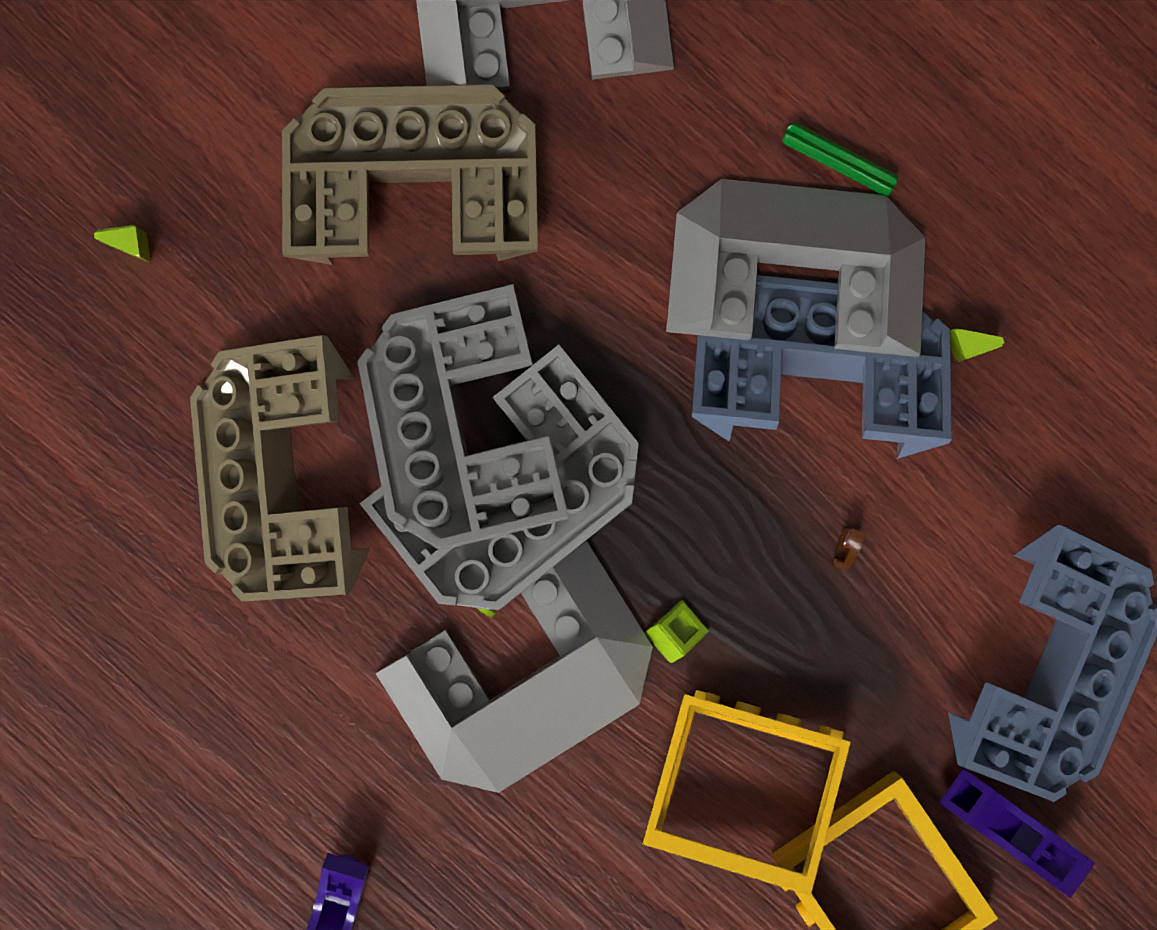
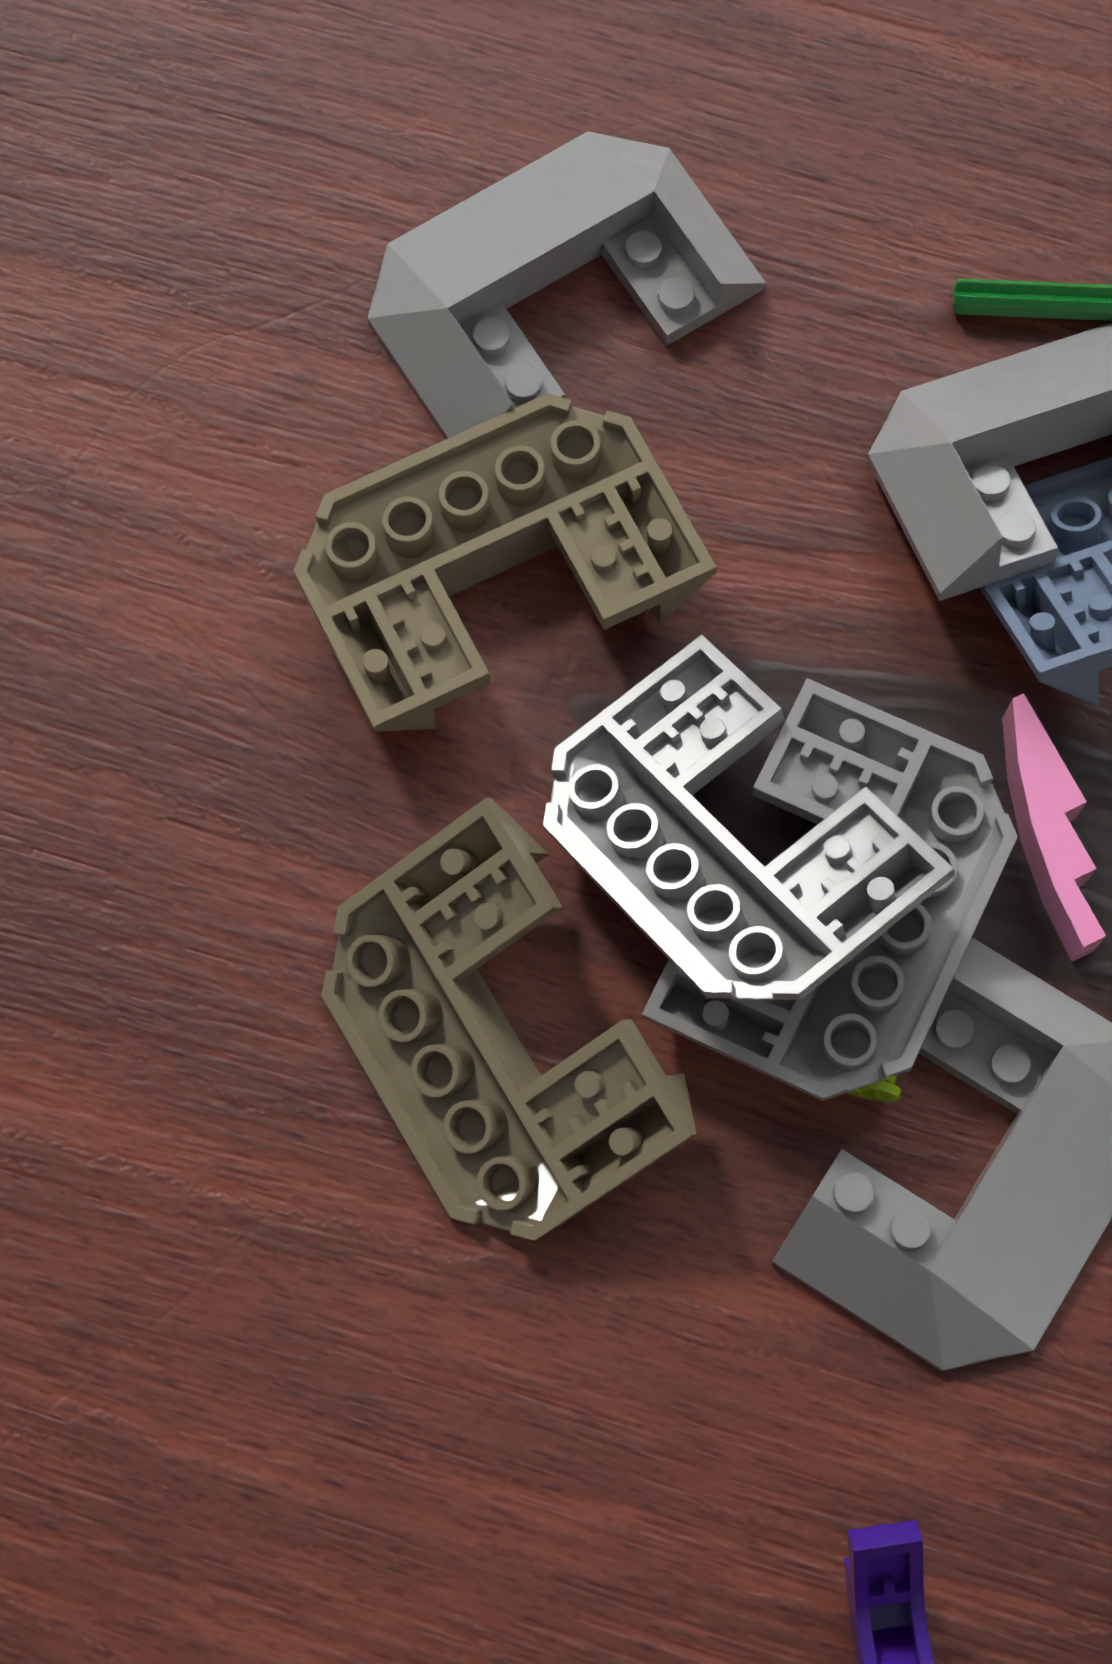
camera: 30 degrees left, 15 degrees down
(126, 239) = (135, 820): lime slope -> none
(668, 482) = (1044, 805): none -> bright pink slope

